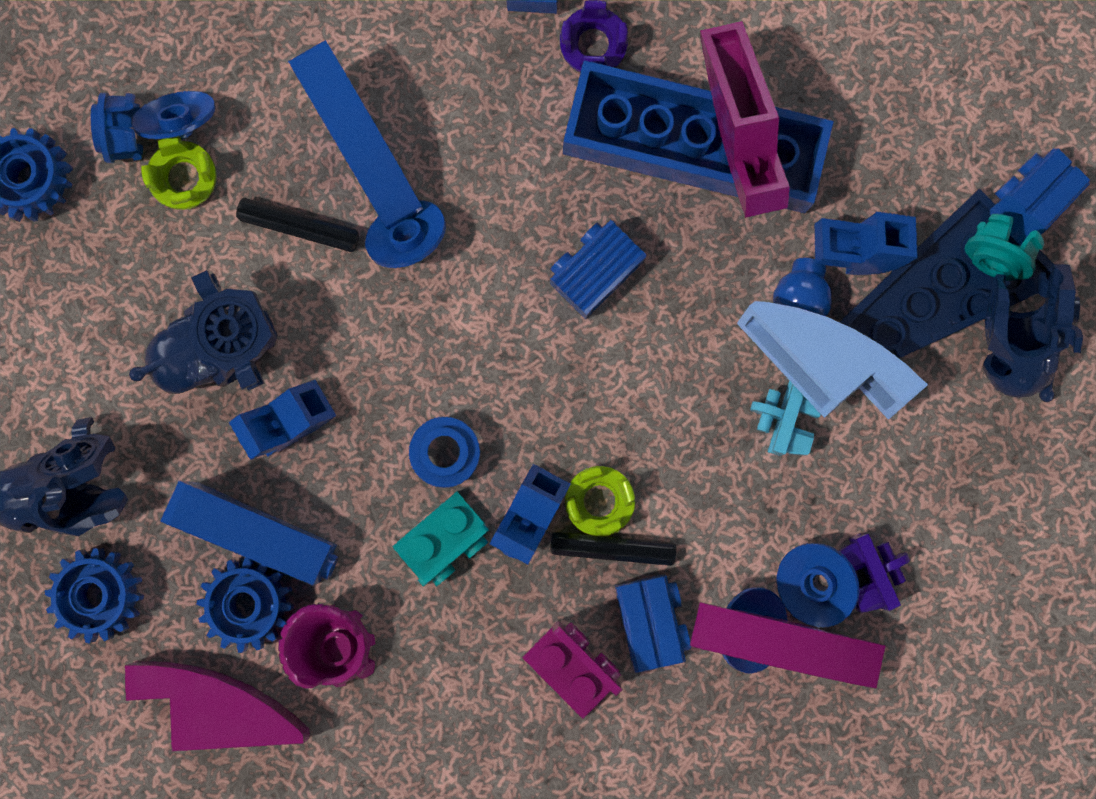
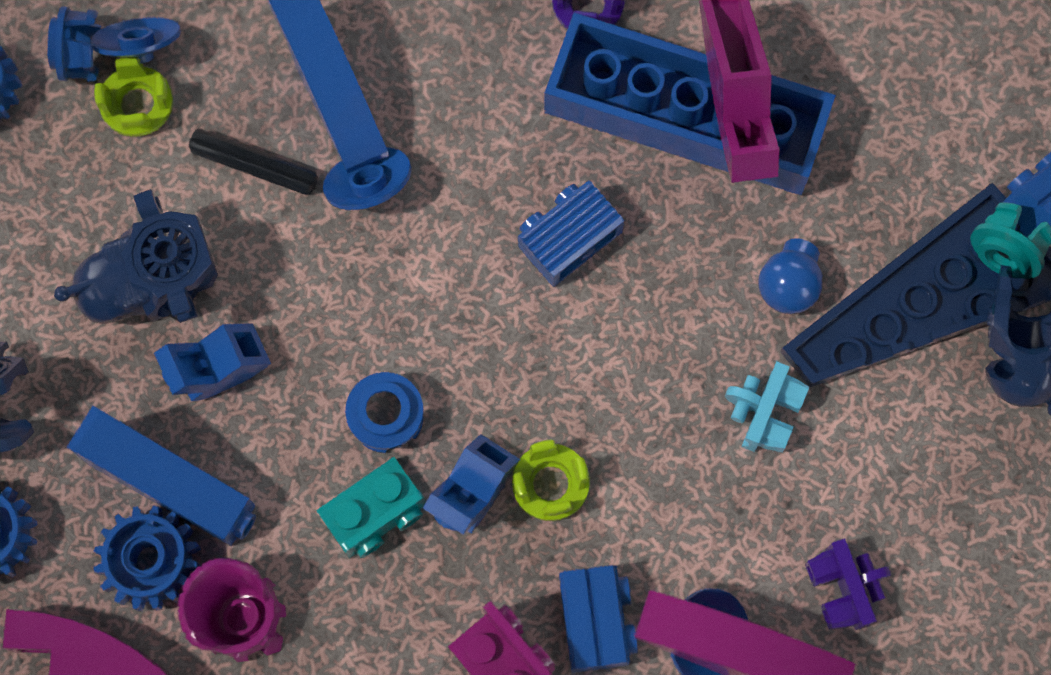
camera: 10 degrees right, 10 degrees down
(613, 548) = (561, 535): black axle -> none
(805, 595) = (767, 596): blue dish -> none
(829, 358) = (814, 343): light blue slope -> none
(869, 247) = (864, 234): blue brick -> none

